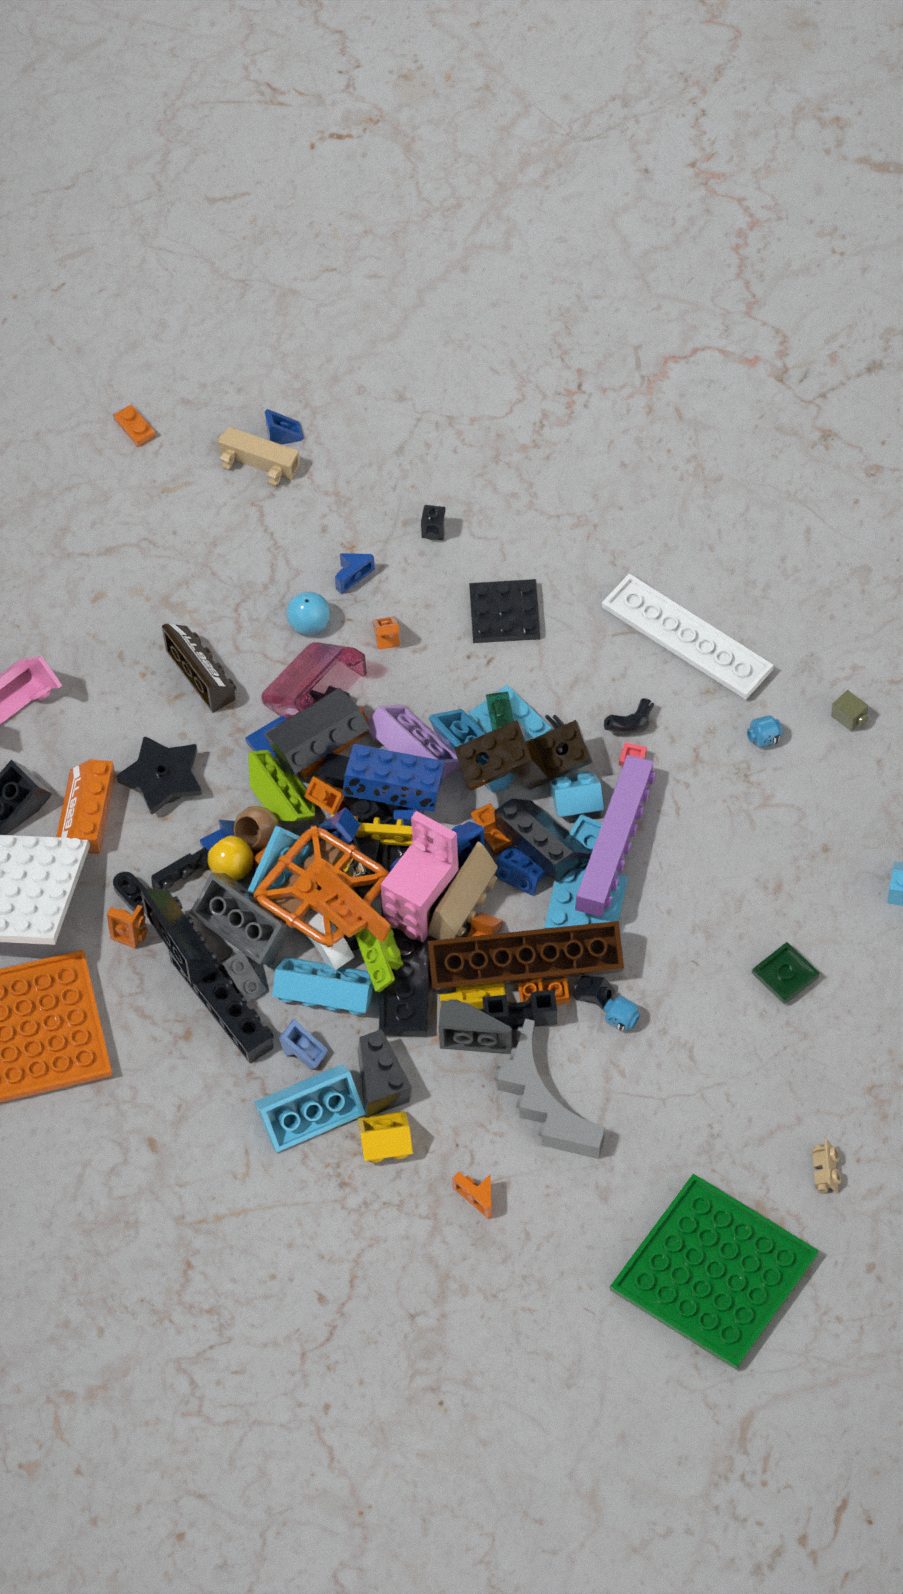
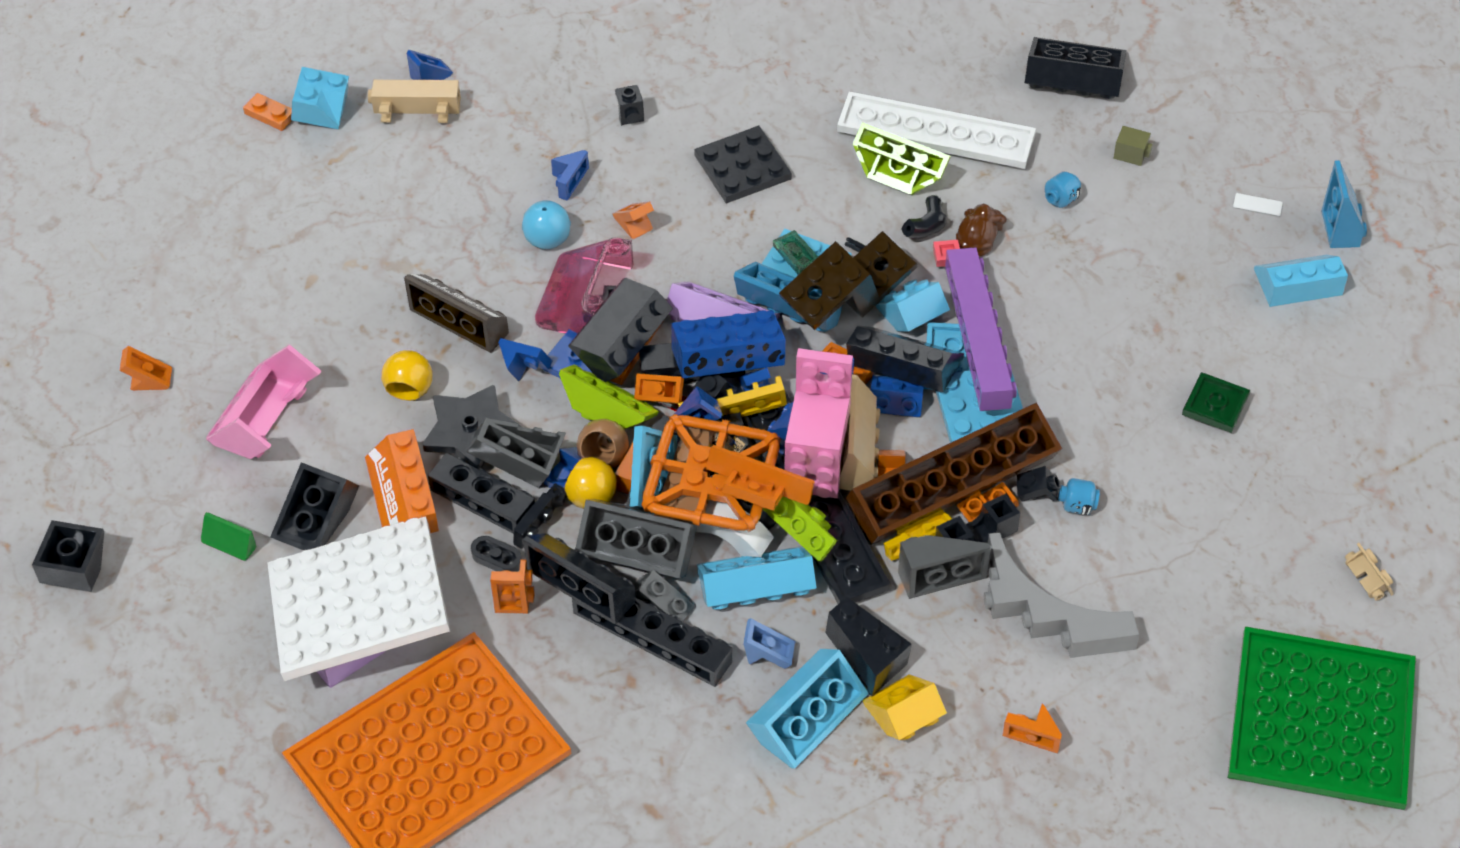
camera: 25 degrees left, 5 degrees down
(129, 807) = (464, 486): none -> black brick
(132, 710) = (406, 375): none -> yellow helmet
(177, 428) = (320, 98): none -> medium azure slope
(185, 809) = (517, 449): none -> dark grey wedge
(228, 727) = (519, 356): none -> blue slope
(634, 654) = (898, 160): none -> lime wedge
(671, 744) = (980, 228): none -> reddish brown hair
(843, 616) = (1075, 67): none -> black slope

